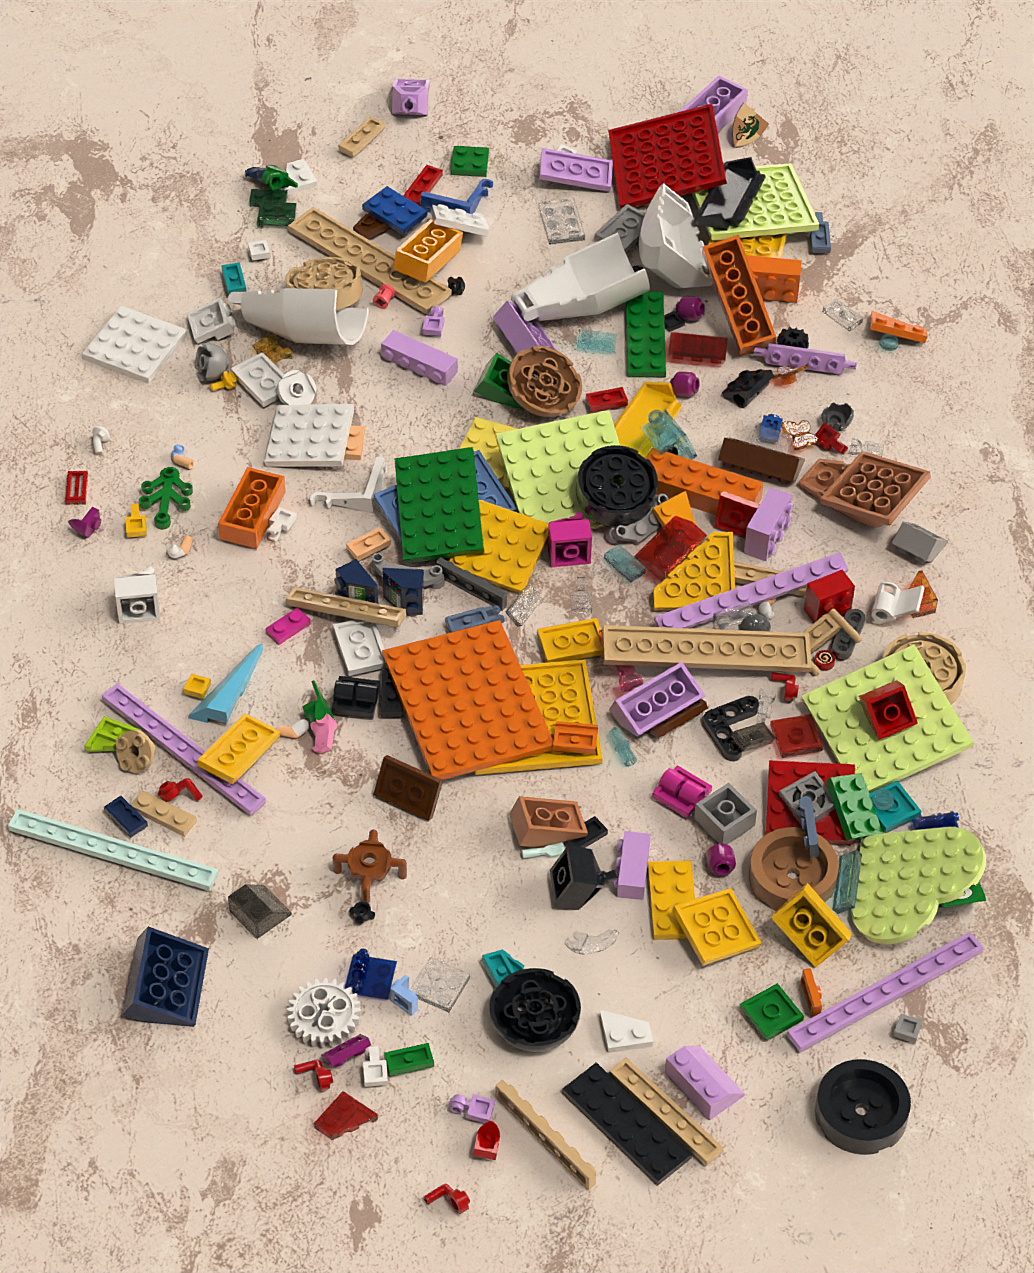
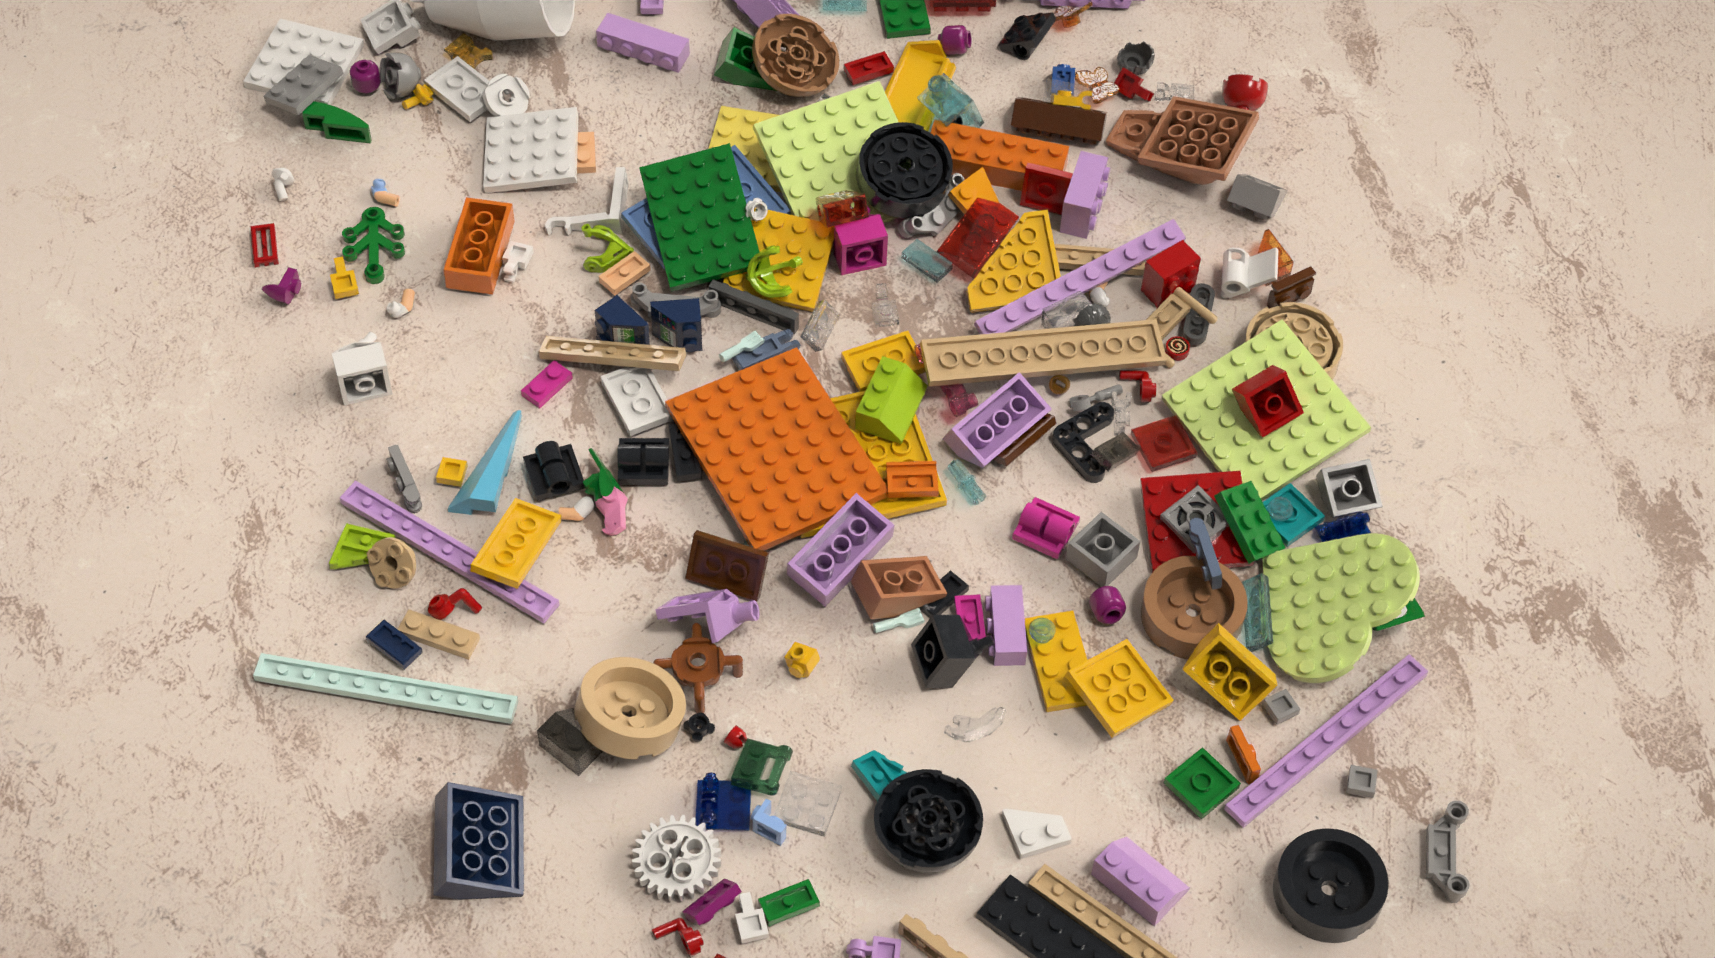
camera: 10 degrees left, 5 degrees up
(130, 361) = (303, 84): none -> light grey plate
(151, 395) = (336, 123): none -> green slope
(157, 688) = (404, 480): none -> light grey hinge
(182, 360) = (365, 76): none -> magenta head
(280, 695) = (553, 470): none -> black plate
(304, 871) = (623, 686): none -> tan brick
(351, 533) = (602, 263): none -> lime helmet
(390, 925) = (736, 738): none -> red hinge
(395, 822) = (719, 606): none -> lavender plate
(401, 947) = (753, 764): none -> clear green plate
(456, 870) = (801, 660): none -> yellow plate
(459, 612) = (748, 343): none -> light aqua piece
(485, 556) = (772, 288): none -> lime helmet
(490, 503) = (761, 209): none -> white plate
(497, 788) = (837, 549): none -> lavender brick
(554, 510) = (837, 209): none -> clear red torso
(569, 672) = (890, 401): none -> lime slope
(604, 852) = (971, 612): none -> dark pink plate
(660, 872) = (1042, 630): none -> clear light blue plate
(715, 680) = (1057, 388): none -> pearl gold hinge
(734, 693) = (1082, 402): none -> light grey piece
(767, 442) = (1064, 98): none -> yellow plate
(852, 960) = (1281, 706): none -> light grey plate
(925, 455) = (1244, 92): none -> red cylinder
(933, 621) = (1292, 288): none -> reddish brown plate
(946, 790) = (1349, 488): none -> light grey slope
(964, 1093) = (1442, 852): none -> light grey plate

